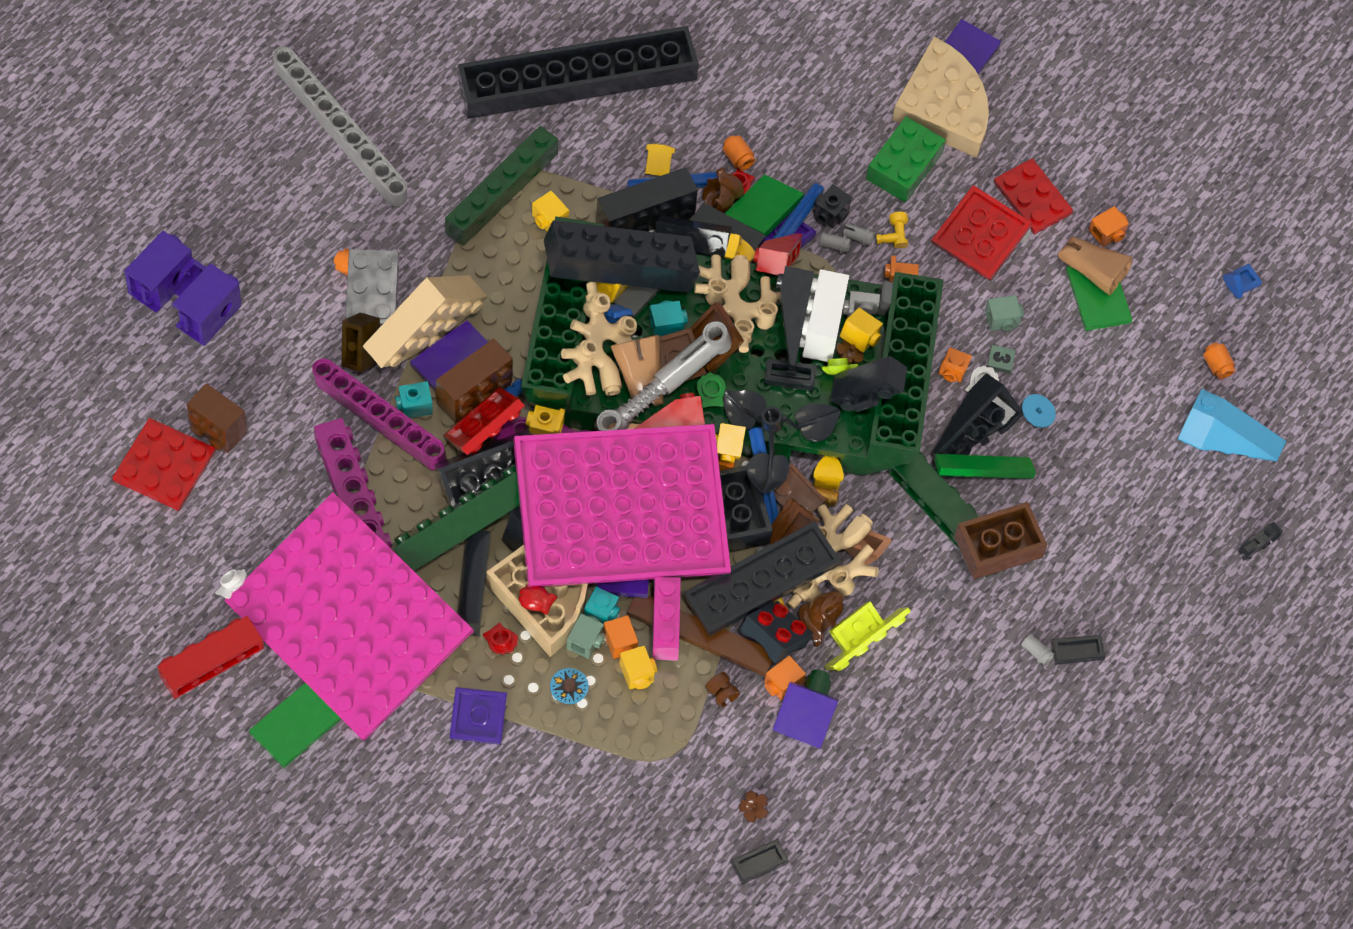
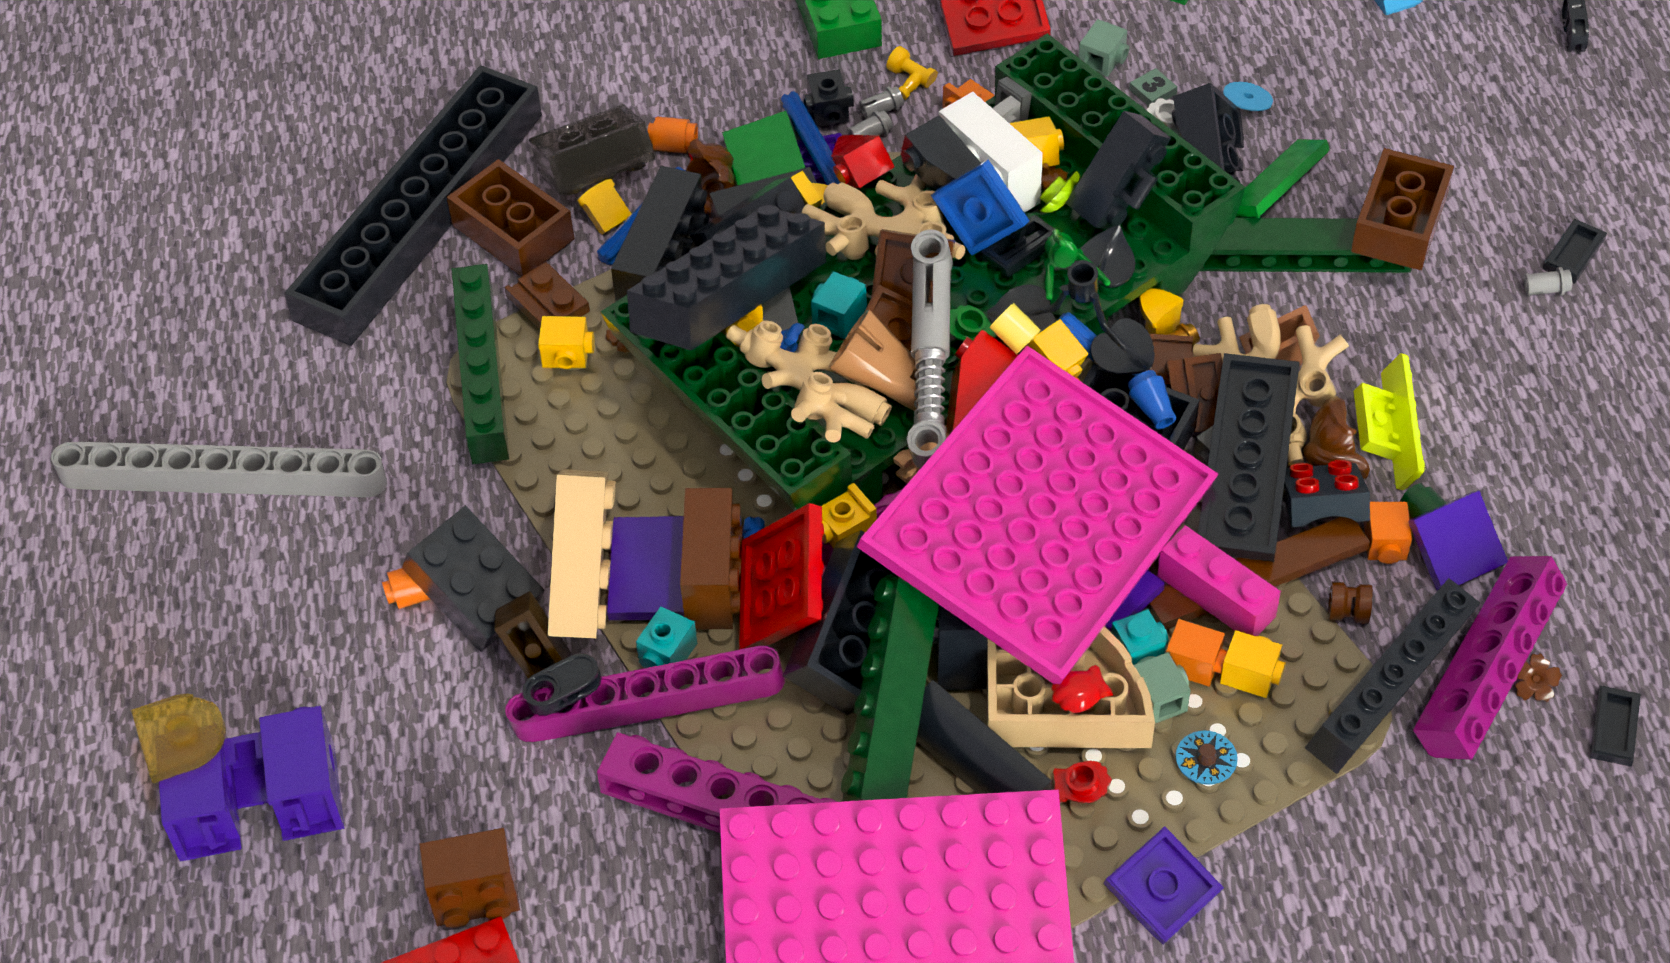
camera: 40 degrees left, 10 degrees down
(170, 238) = (178, 734): none -> clear yellow tile
(351, 376) = (571, 679): none -> black piece
(574, 182) = (546, 294): none -> reddish brown plate
(607, 123) = (511, 218): none -> reddish brown brick
(684, 124) = (592, 149): none -> clear smoke brick
(688, 736) = (1391, 676): none -> black brick
(718, 411) = (1014, 328): none -> light yellow piece
(744, 775) = (1490, 657): none -> magenta brick
(746, 507) = (1152, 398): none -> blue cone
(779, 336) = (980, 207): none -> blue tile
(797, 397) = (1062, 254): none -> green plant

